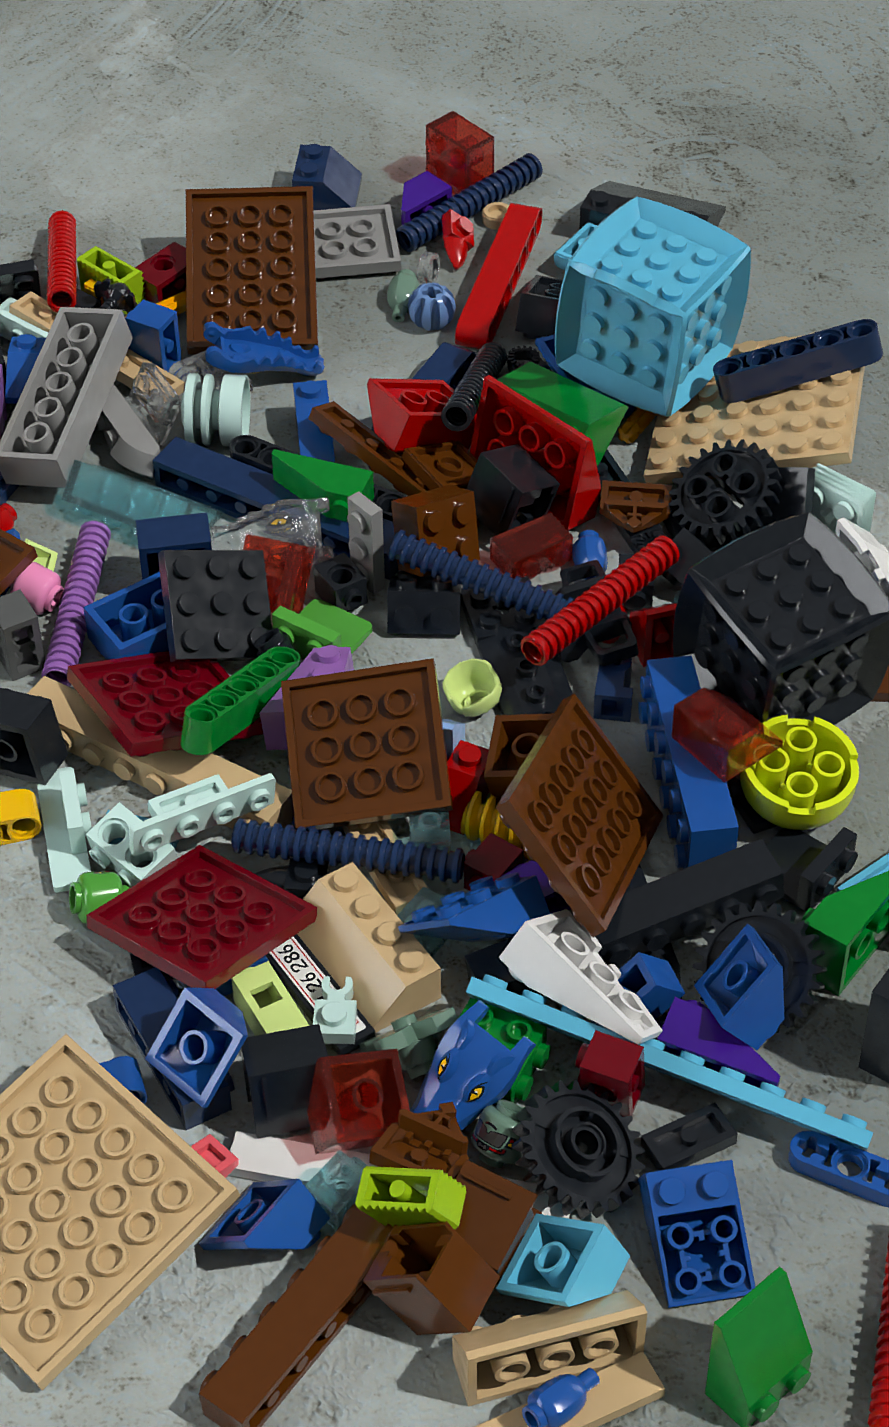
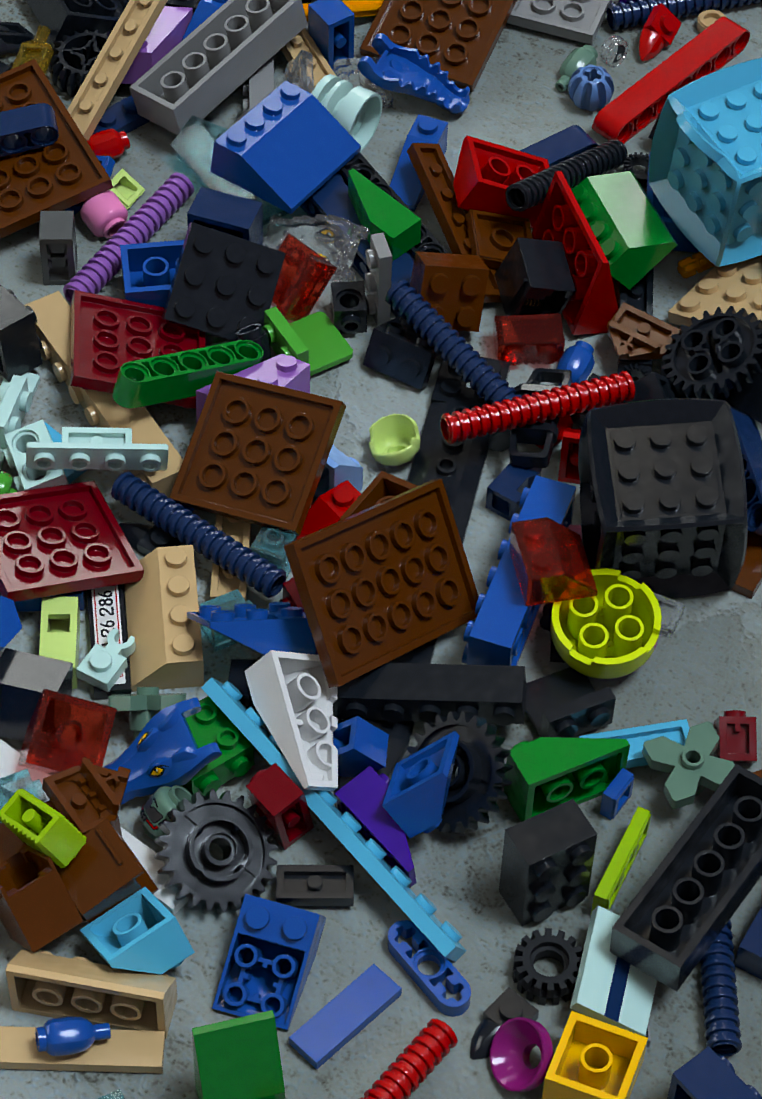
camera: 25 degrees right, 5 degrees up
(191, 457) = (283, 148): none -> blue slope
(807, 1245) = (345, 1016): none -> blue tile

